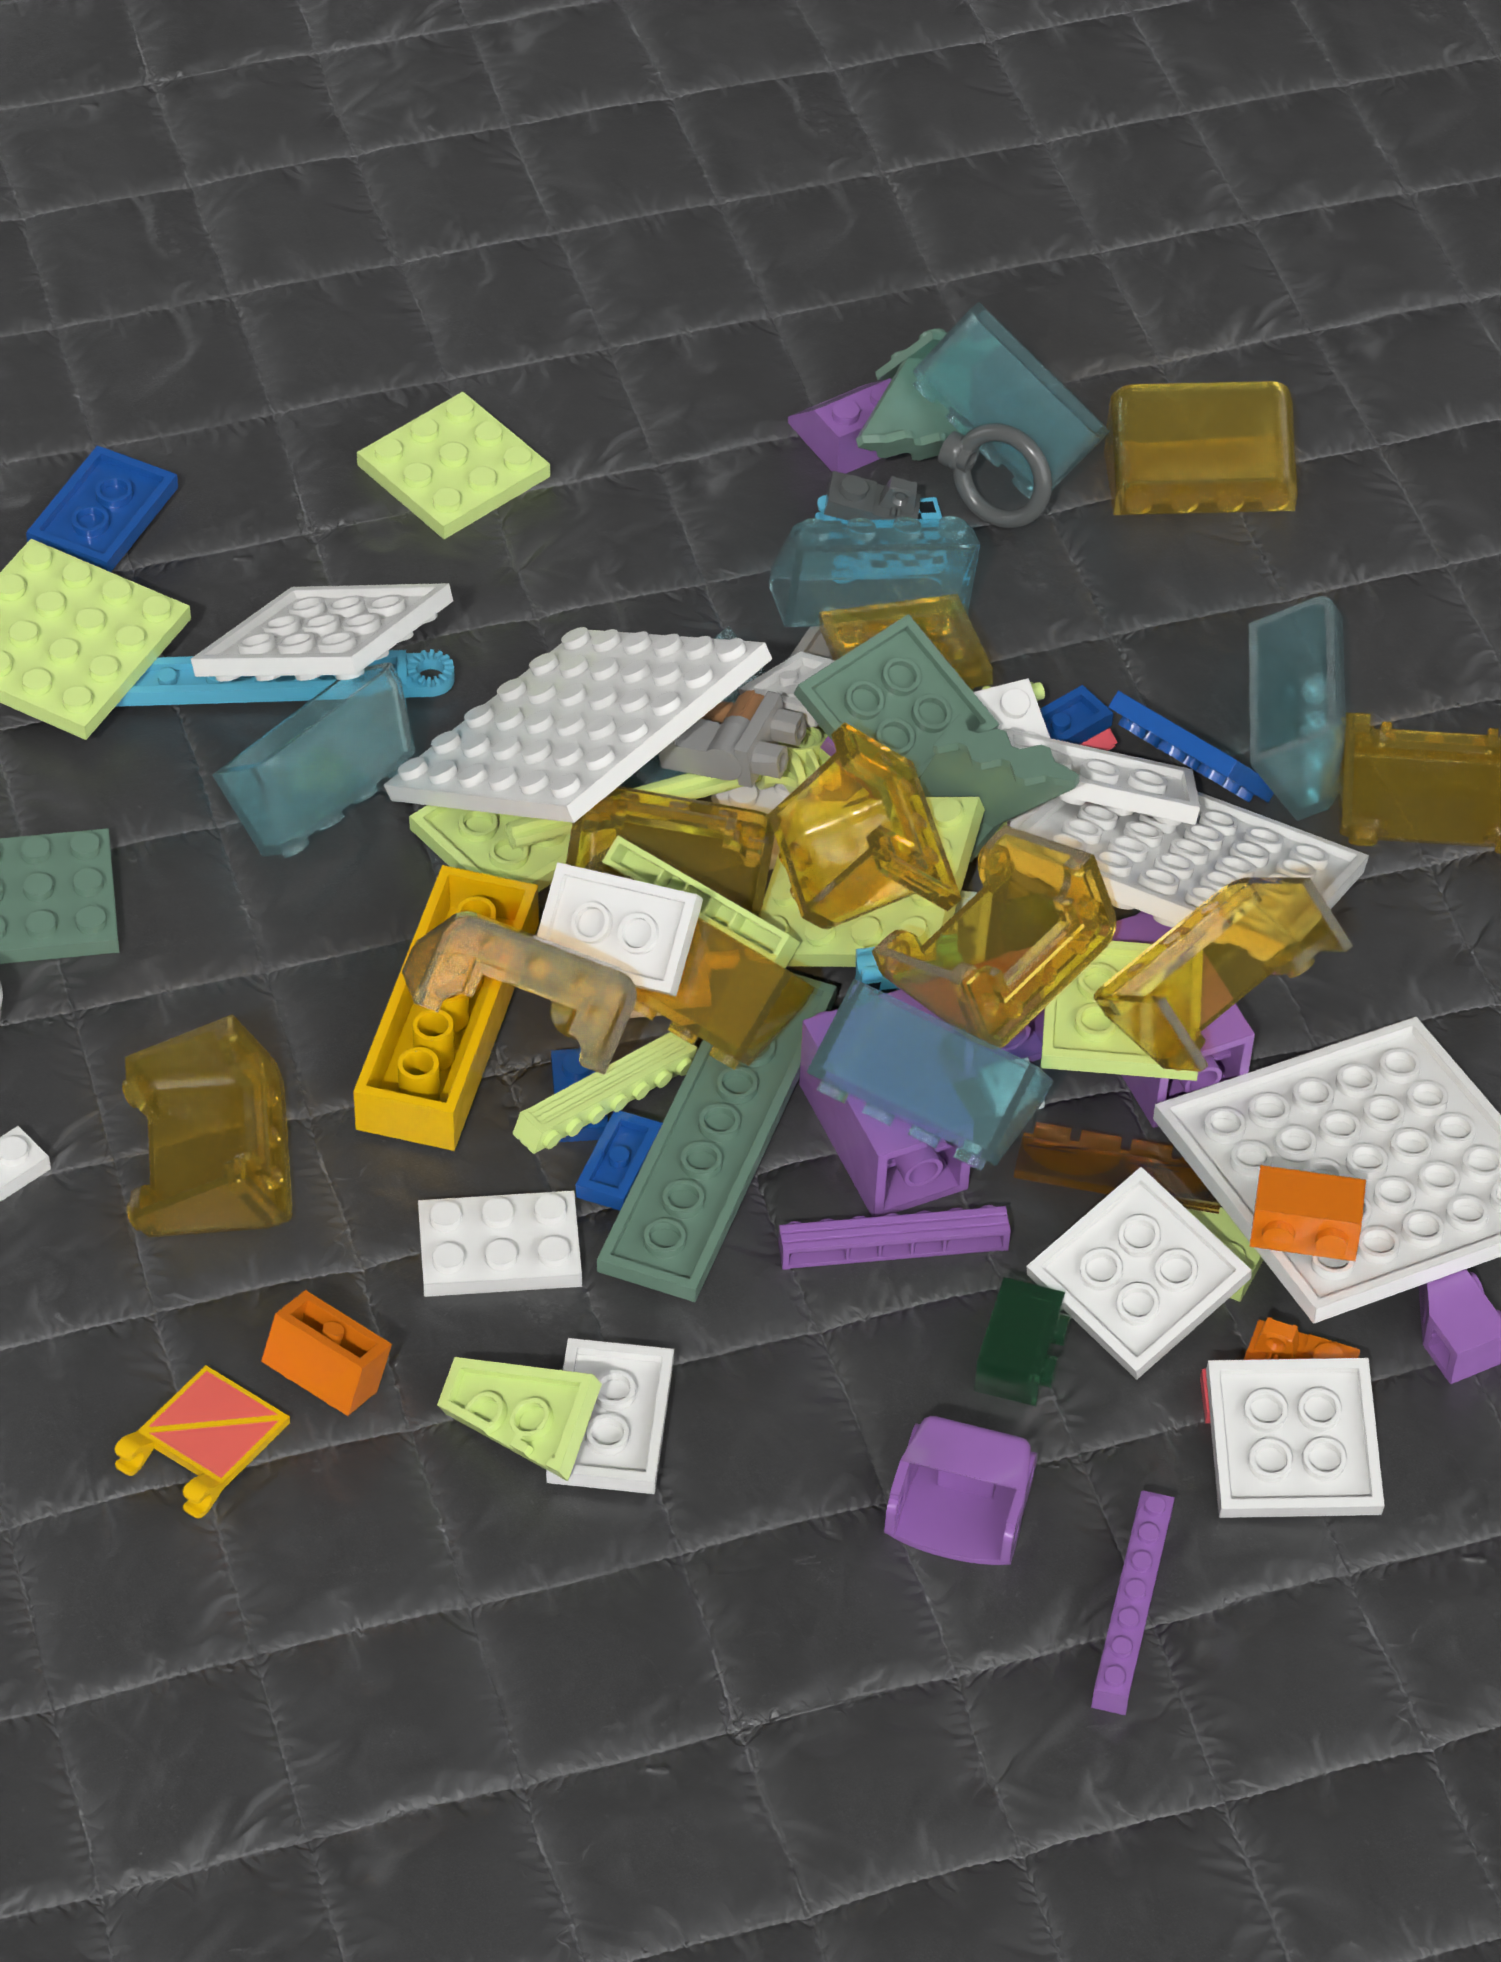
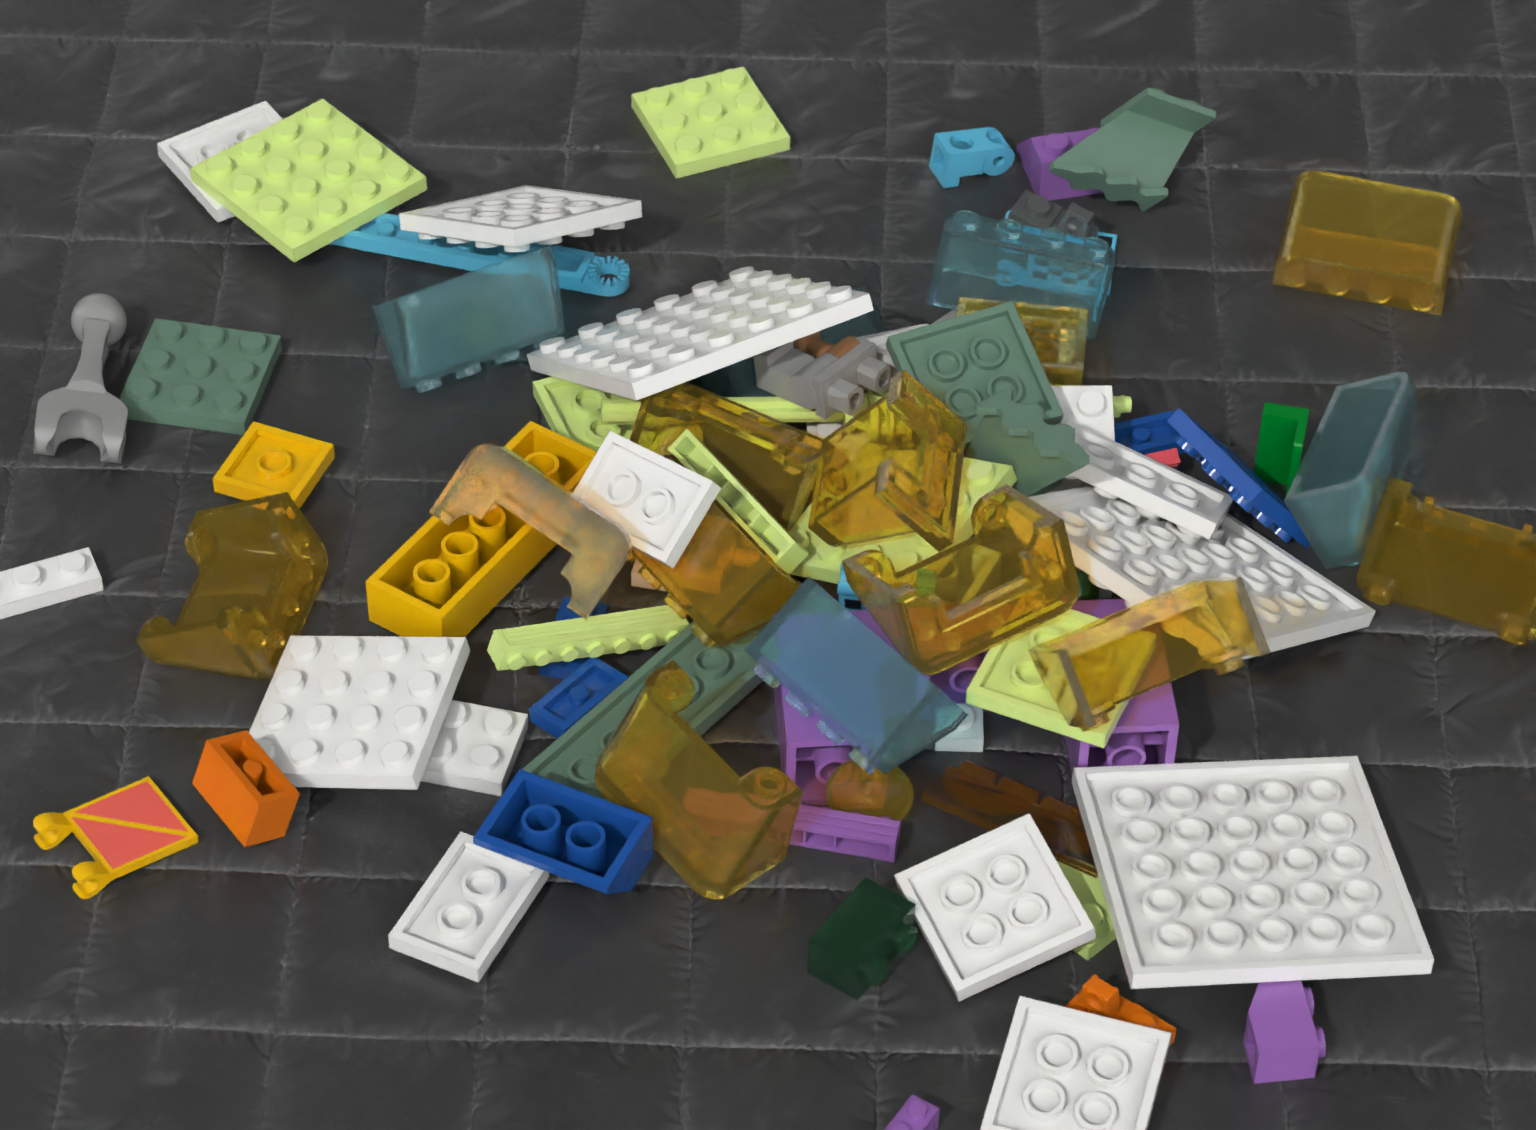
camera: 20 degrees right, 5 degrees down
(104, 508) = (400, 92): blue plate -> none
(174, 982) = (273, 463): none -> yellow plate
(399, 1231) = (358, 708): none -> white plate
(523, 1408) = (391, 877): yellowish green wing -> none
(686, 1311) = (569, 834): none -> blue slope
(748, 441) = (969, 154): none -> medium azure leg
(793, 1236) = (705, 816): none -> clear yellow windscreen
(960, 454) = (1144, 199): dark grey piece -> none
(961, 1186) = (873, 795): none -> clear yellow piece
(961, 1491) = (746, 1051): medium lavender piece -> none
(993, 378) = (1198, 162): clear light blue windscreen -> none
(1216, 702) = (1280, 443): none -> green panel
(1308, 1213) = (1160, 888): orange brick -> none

